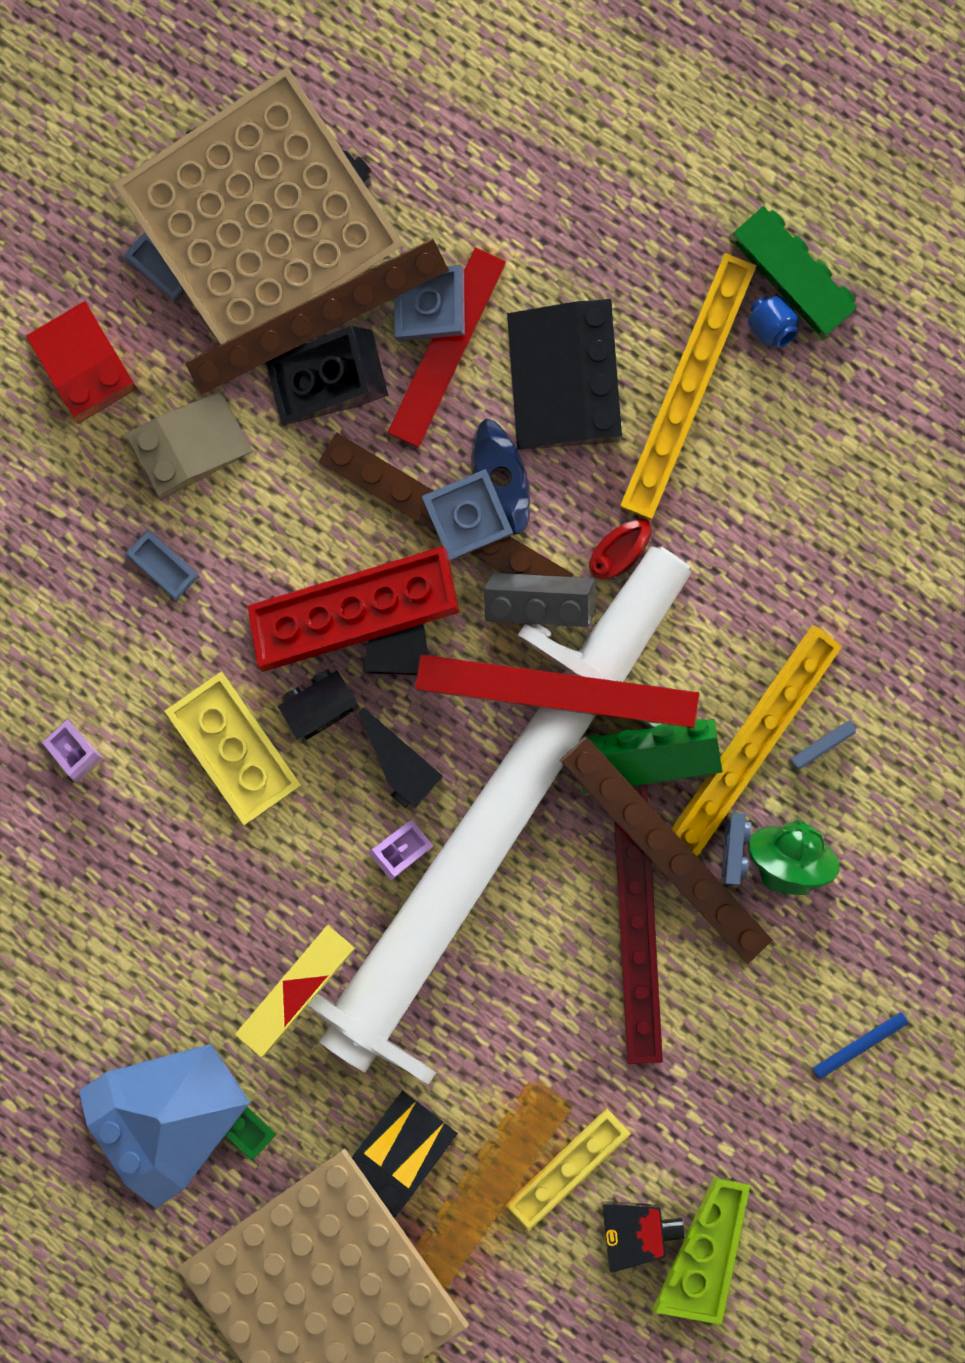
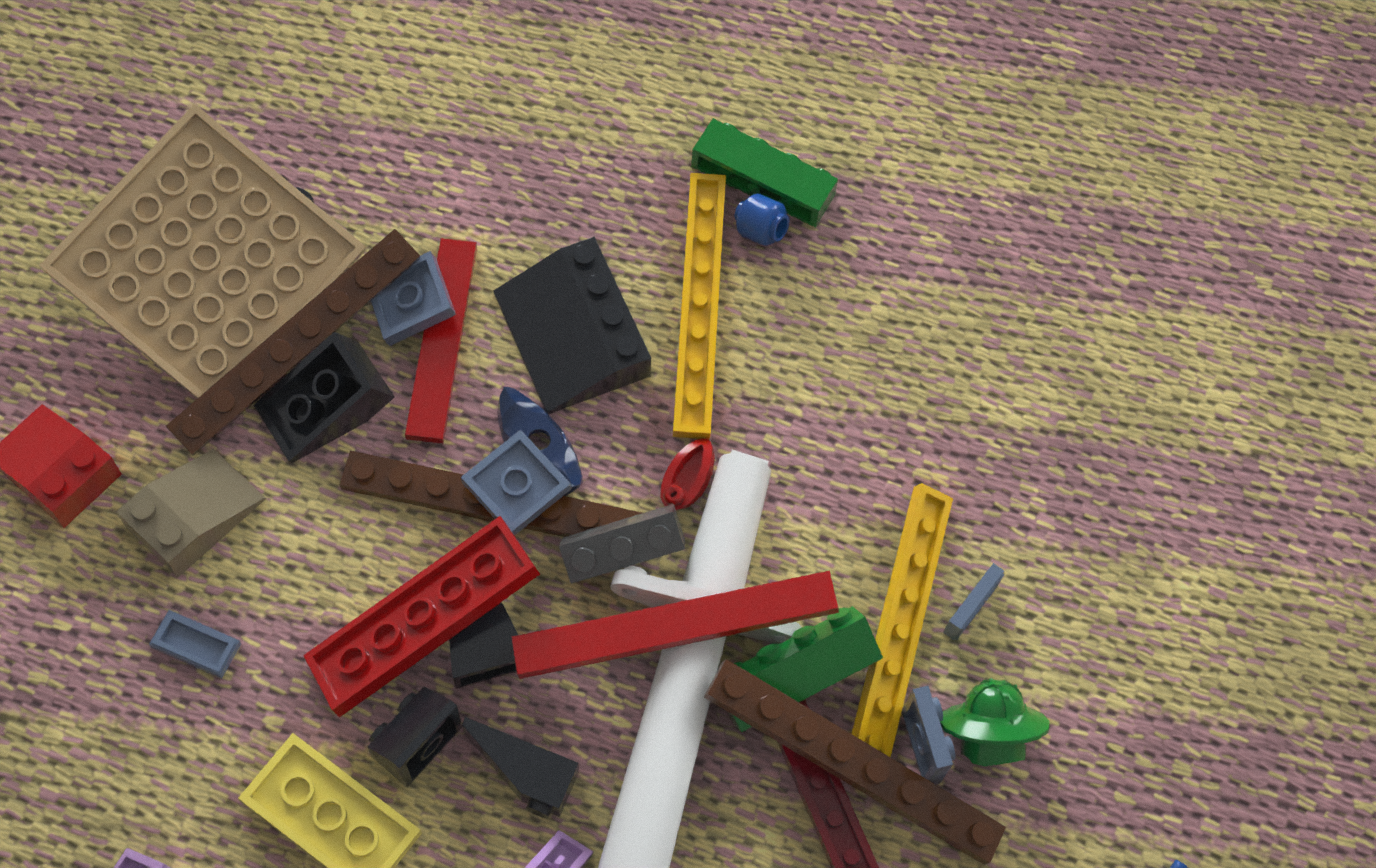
camera: 25 degrees left, 20 degrees down
(150, 264) = (109, 348): sand blue tile -> none

